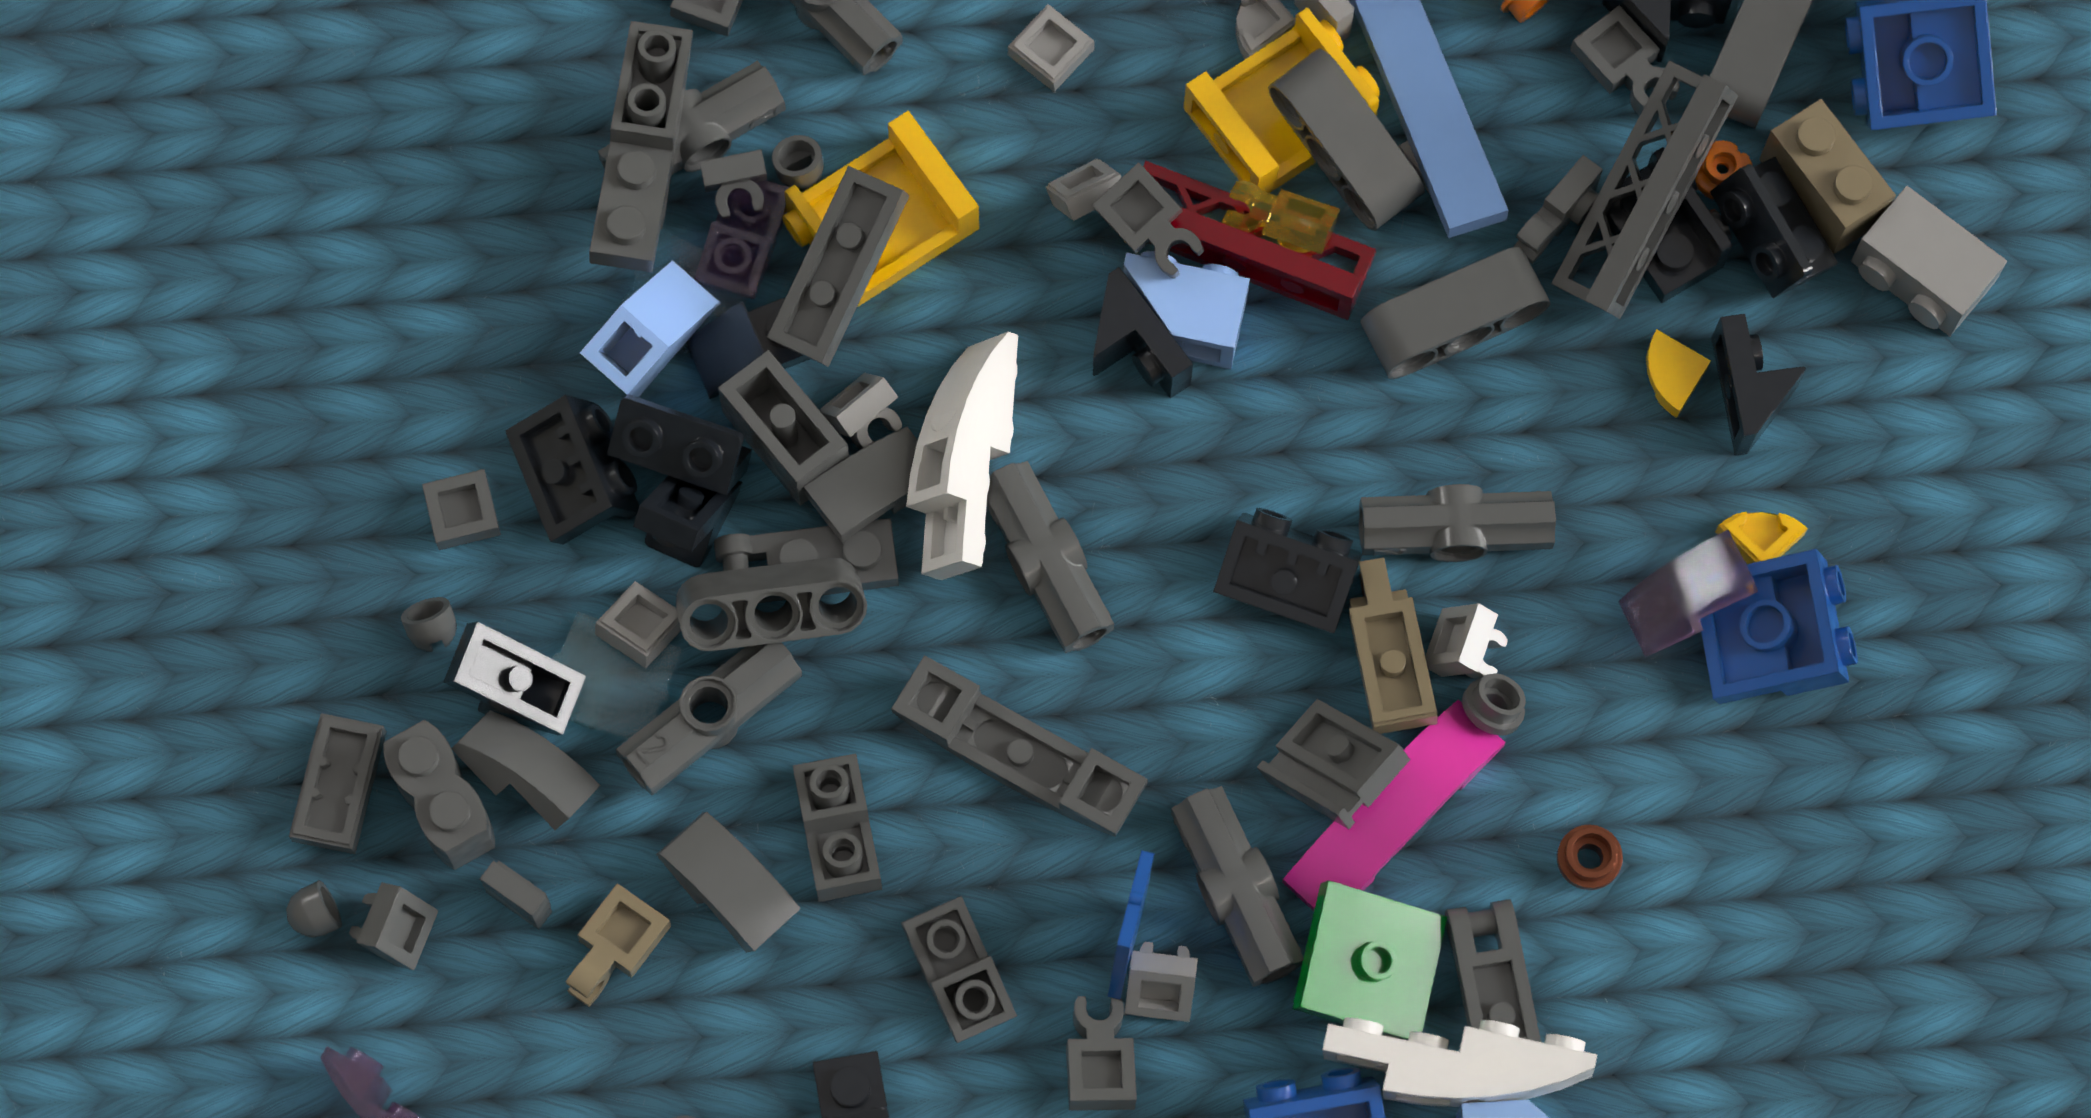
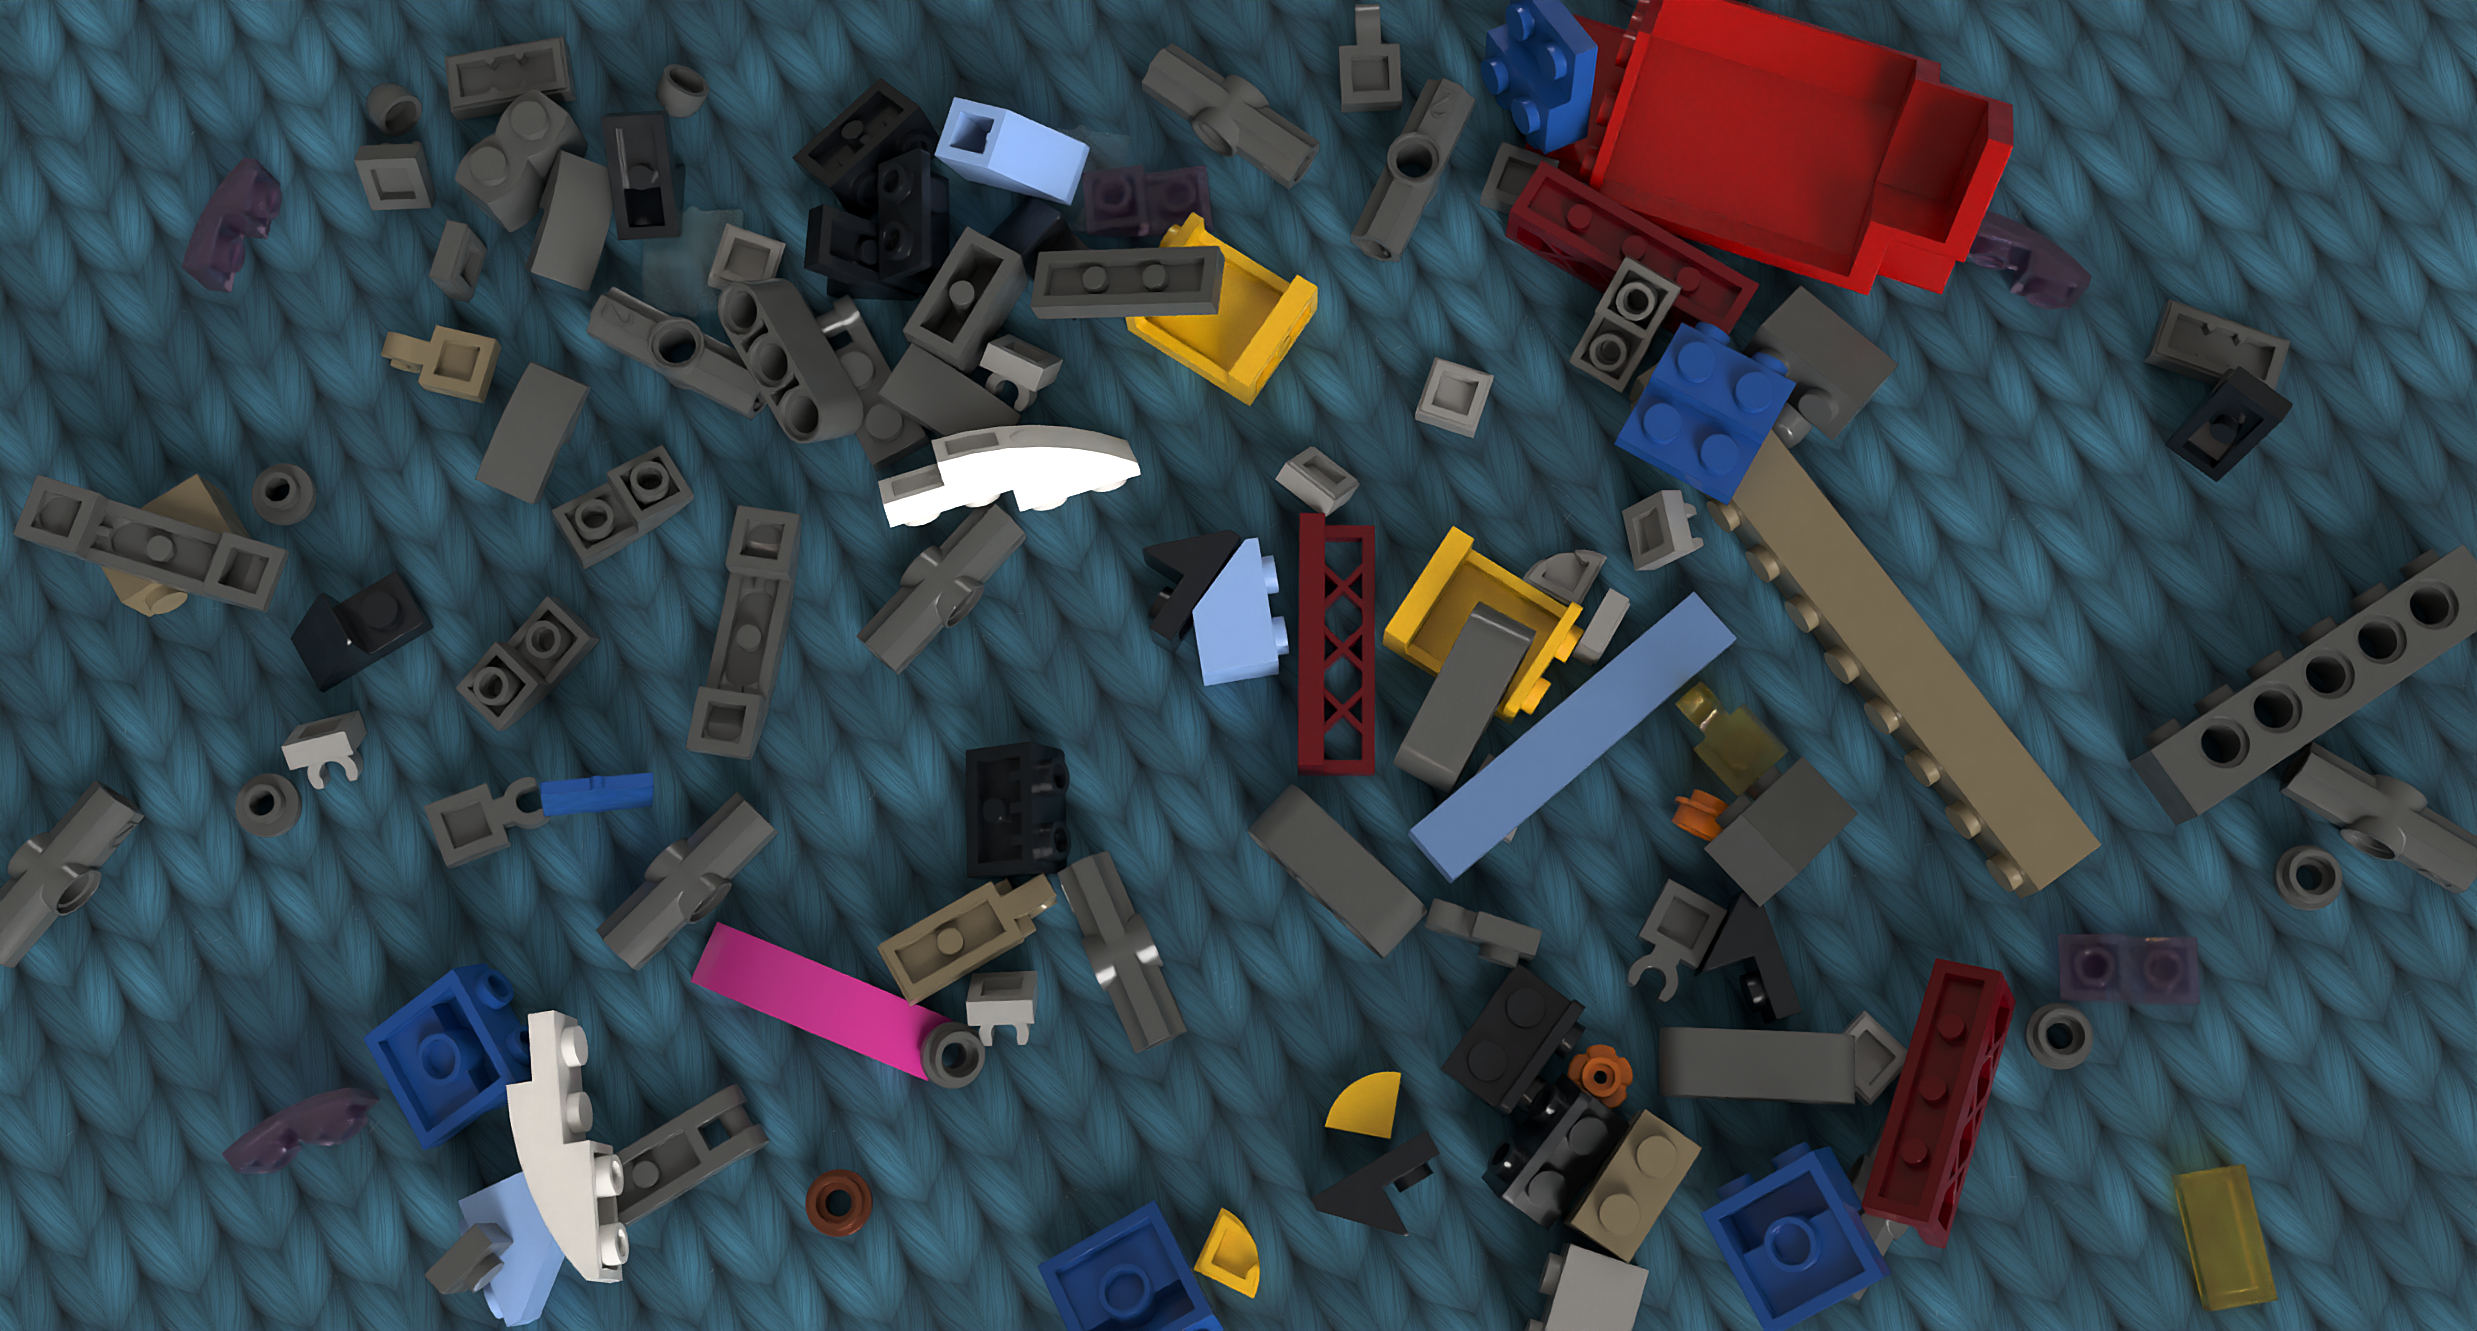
camera: 75 degrees right, 5 degrees up
(461, 509) = (794, 73): dark grey plate -> none
(641, 147) = (1173, 71): dark grey slope -> none
(735, 174) = (1191, 164): dark grey tile -> none
(798, 161) = (1243, 213): dark grey hinge -> none
(1142, 214) = (1293, 534): dark grey plate -> none
(1161, 984) = (567, 846): light grey tile -> none
(1289, 217) = (1358, 676): clear yellow plate -> none
(1333, 763) = (827, 923): dark grey plate -> none
(1369, 960) = (654, 1031): plate -> none
(1657, 196) = (1528, 1021): dark grey fence -> none
(1691, 586) = (1130, 1202): clear purple slope -> none

